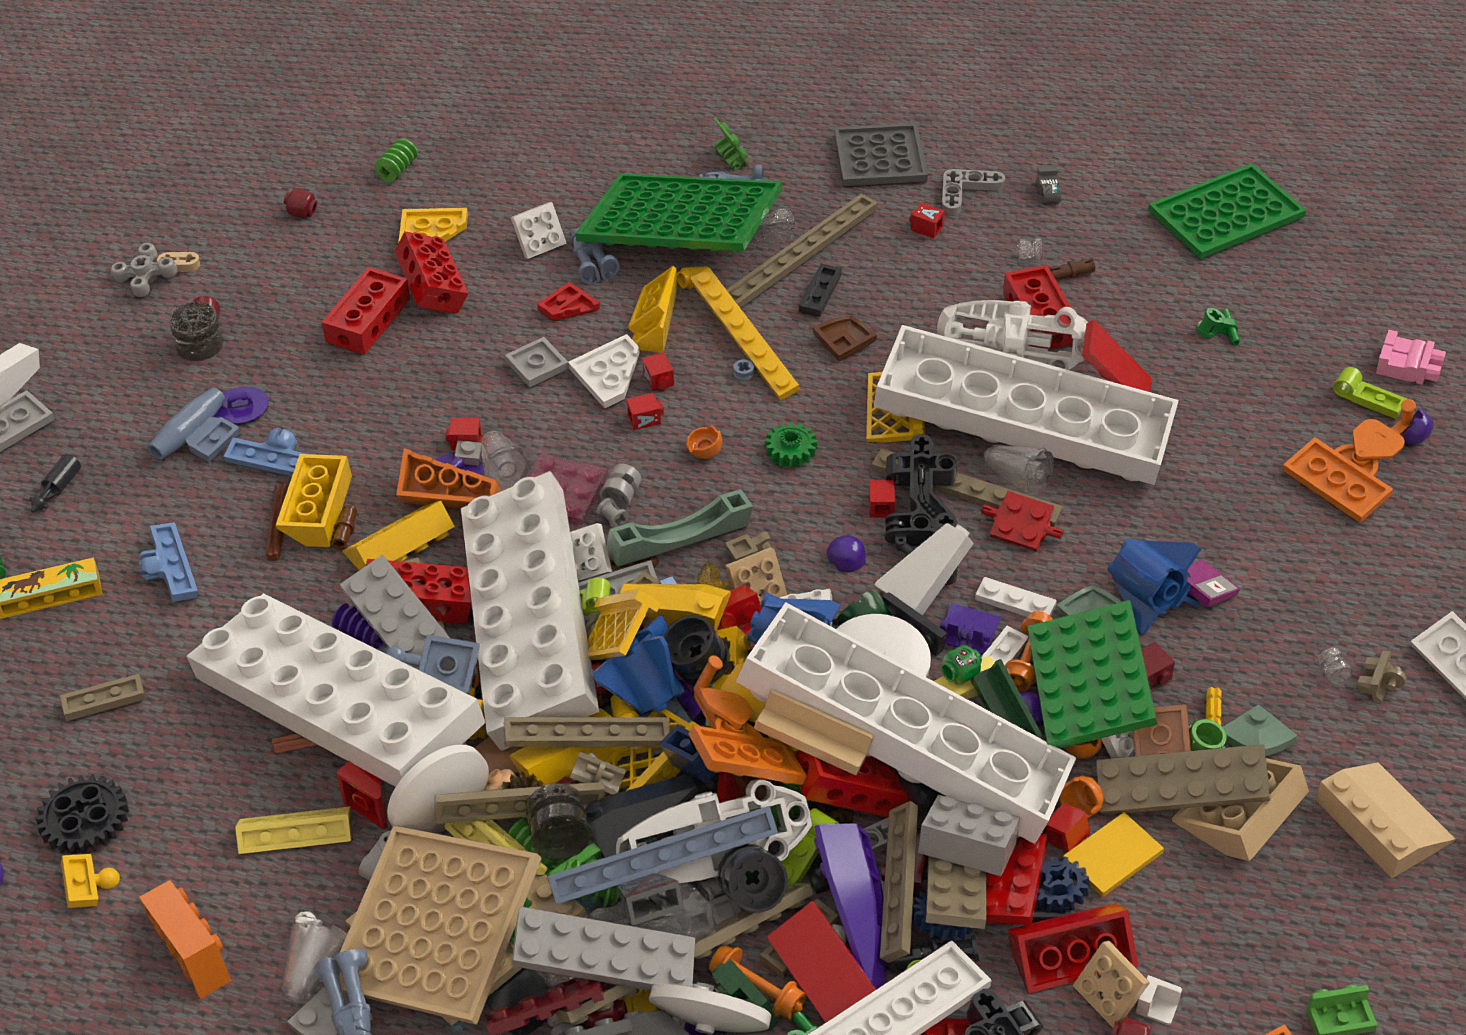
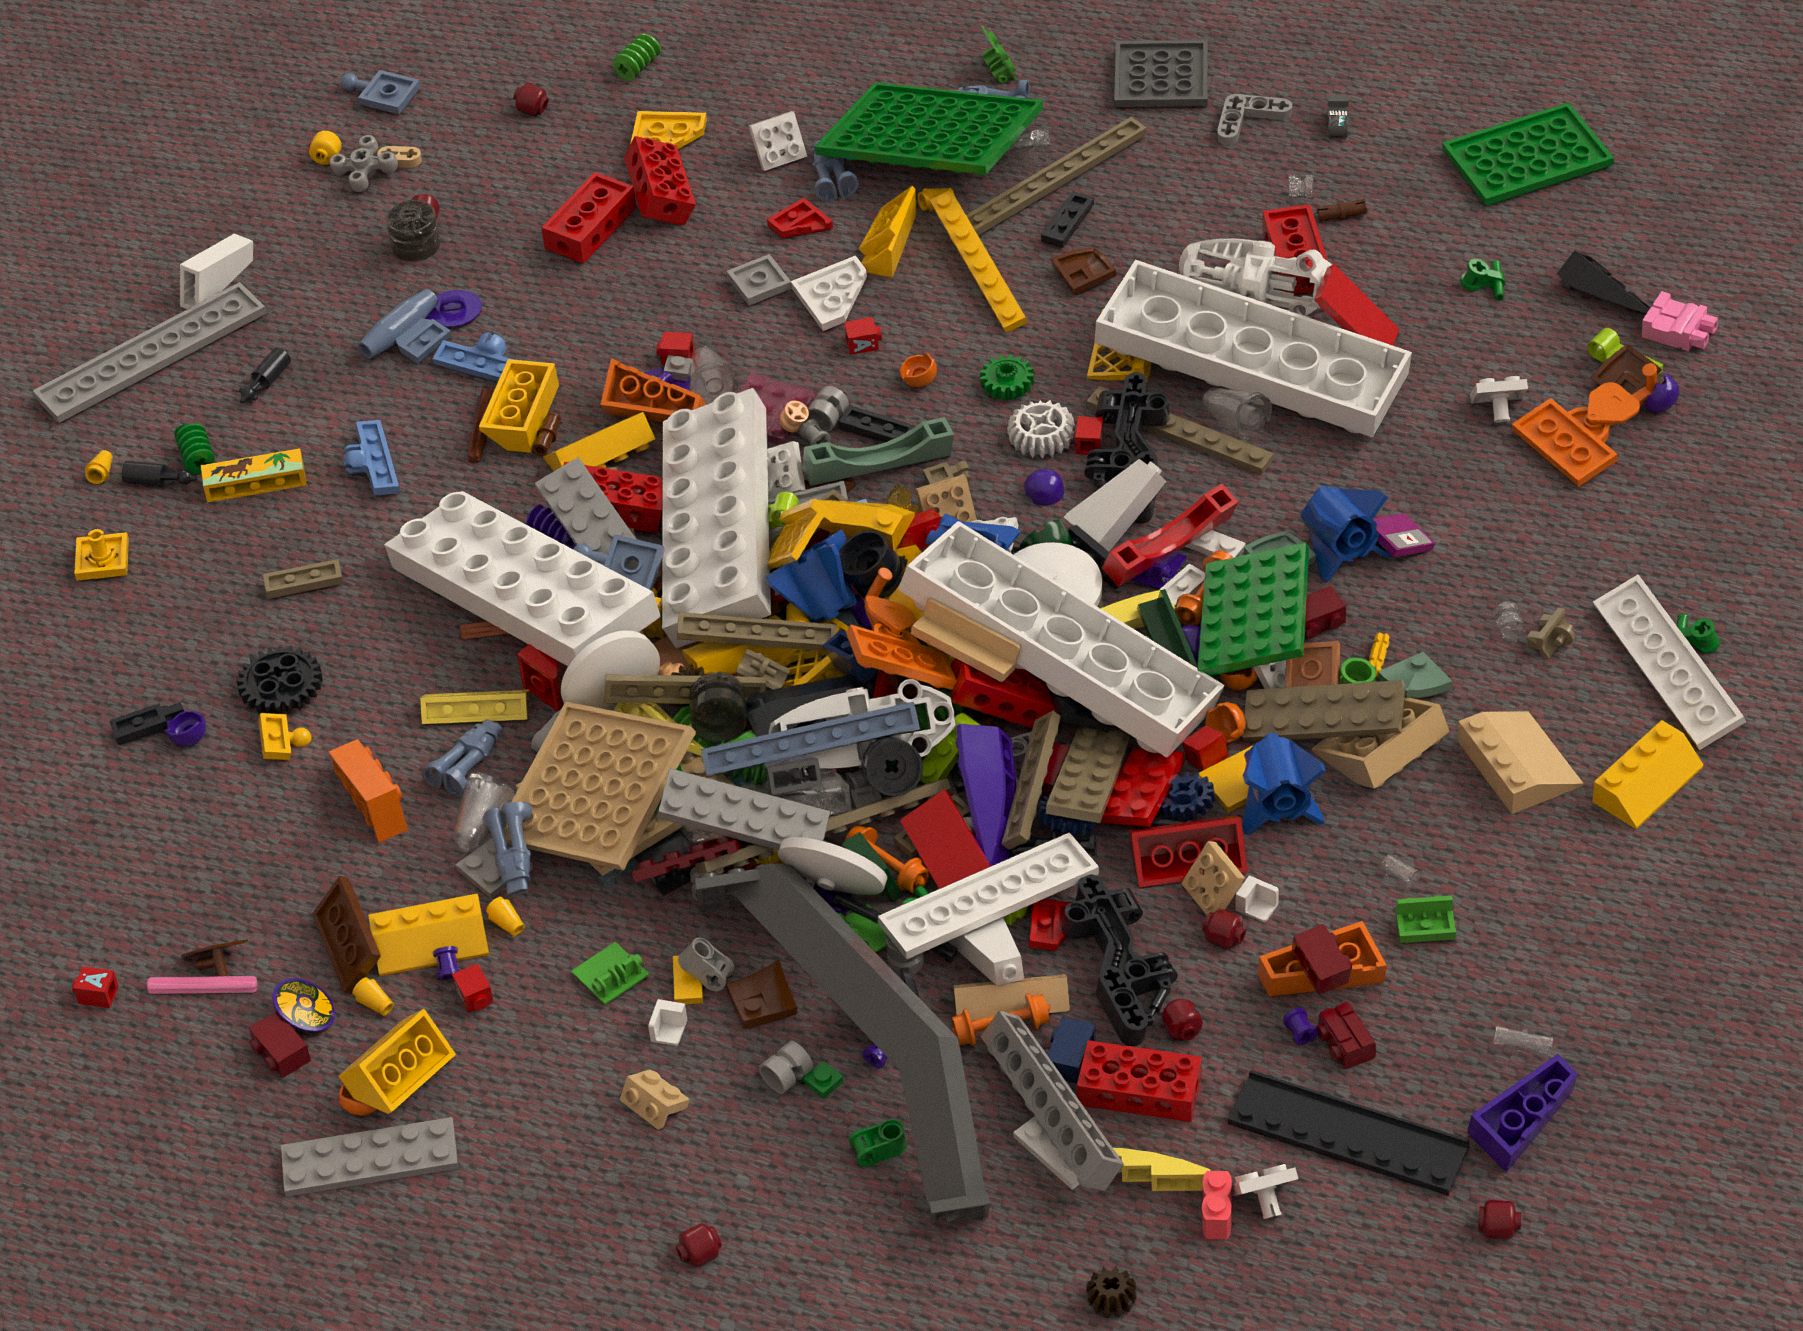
camera: 10 degrees right, 0 degrees up
(105, 255) = (324, 145): none -> yellow head
(154, 202) = (376, 91): none -> sand blue plate
(298, 879) = (473, 746): none -> sand blue piece
(590, 496) = (793, 410): none -> light nougat wheel
(658, 371) = (882, 296): red brick -> none
(669, 499) = (872, 424): none -> black plate
(743, 375) = (970, 294): sand blue bush -> none
(833, 494) = (1042, 433): none -> white gear
(927, 220) = (1196, 149): red brick -> none
(961, 664) = (1128, 593): green head -> none
(969, 835) = (1103, 743): light grey brick -> none
(998, 591) = (1142, 553): none -> red arch
(1022, 521) = (1228, 464): red plate -> none
(1158, 864) = (1279, 782): none -> blue brick
(1265, 435) = (1498, 393): none -> white plate
(1297, 952) = (1399, 869): none -> clear pin
(1318, 321) = (1591, 277): none -> black wedge
(1376, 403) = (1624, 369): none -> reddish brown plate

